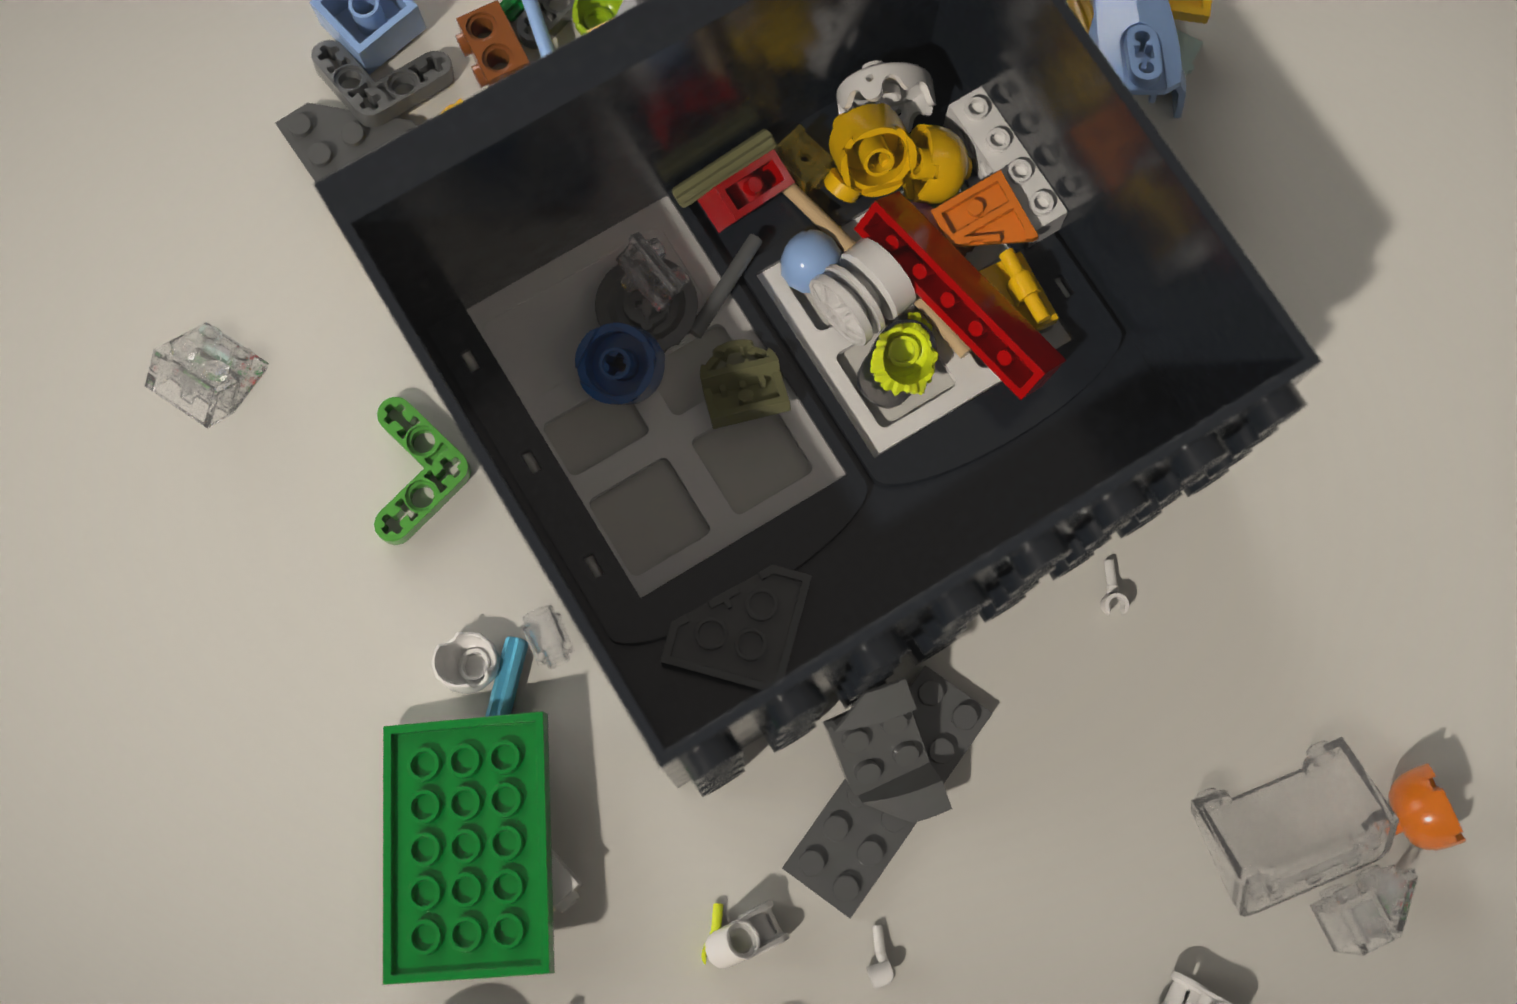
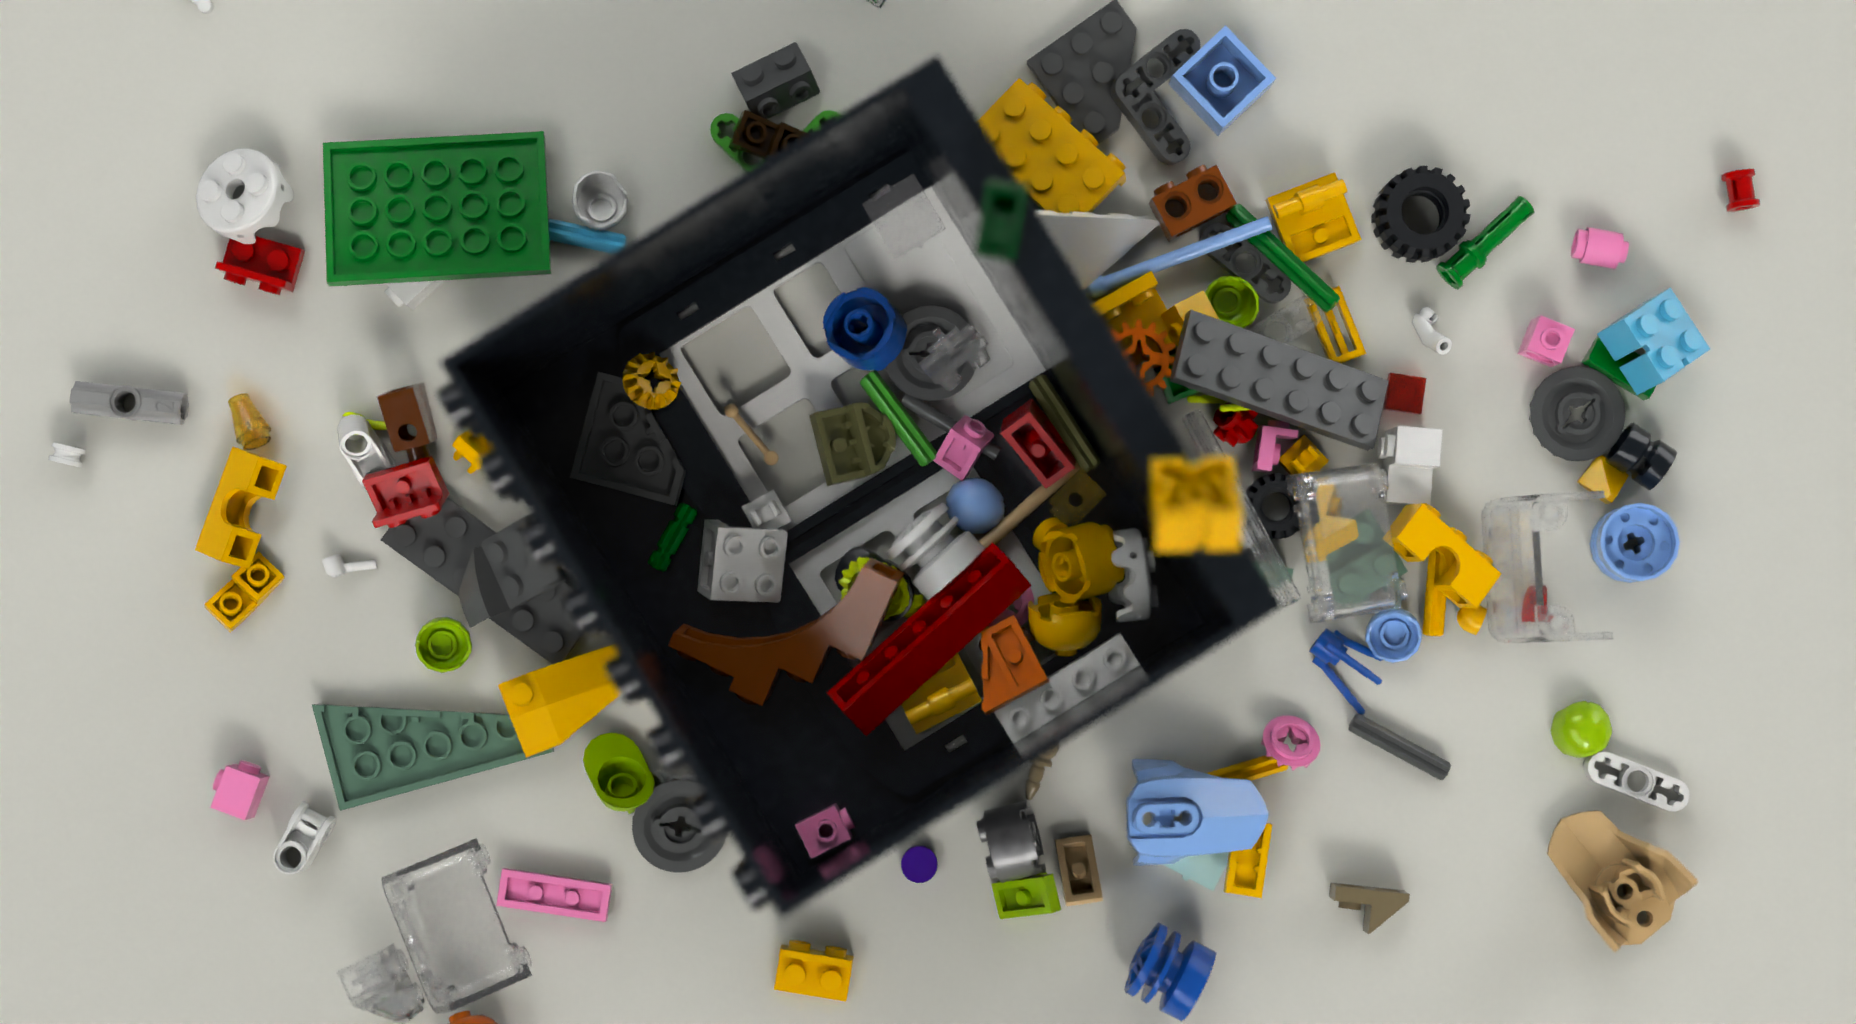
camera: 95 degrees right, 10 degrees up
(342, 471) = (776, 82): none -> dark grey bracket
(408, 472) = (762, 136): none -> dark brown slope
(497, 334) = (903, 216): none -> clear piece
(504, 99) = (1001, 219): none -> dark green slope
(682, 609) = (639, 388): none -> yellow gear
(699, 882) = (406, 407): none -> reddish brown torso
(725, 331) = (899, 417): none -> bright green axle
(744, 805) = (471, 448): none -> yellow tile
(749, 269) = (963, 446): none -> bright pink bracket
(758, 475) = (770, 457): none -> tan hinge
(797, 882) = (406, 492): none -> red bracket
(820, 478) = (767, 512): none -> white tile
(845, 583) = (672, 537): none -> green axle
(875, 506) = (741, 563): none -> white bracket
(970, 841) = (443, 644): none -> lime hair
(972, 432) = (803, 651): none -> dark orange arch
(1028, 702) = (558, 699): none -> yellow wedge
(1092, 894) = (398, 750): none -> sand green wing
(1110, 639) = (618, 772): none -> lime piece
(1161, 416) = (825, 829): none -> bright pink brick
(1183, 562) = (658, 839): none -> dark grey gear
(1207, 157) = (1078, 870): none -> tan slope
(1227, 199) = (1026, 896): none -> lime slope
(1247, 716) = (554, 894): none -> bright pink plate
(1294, 70) = (1167, 970): none -> blue wheel
(1313, 439) = (814, 971): none -> yellow bracket

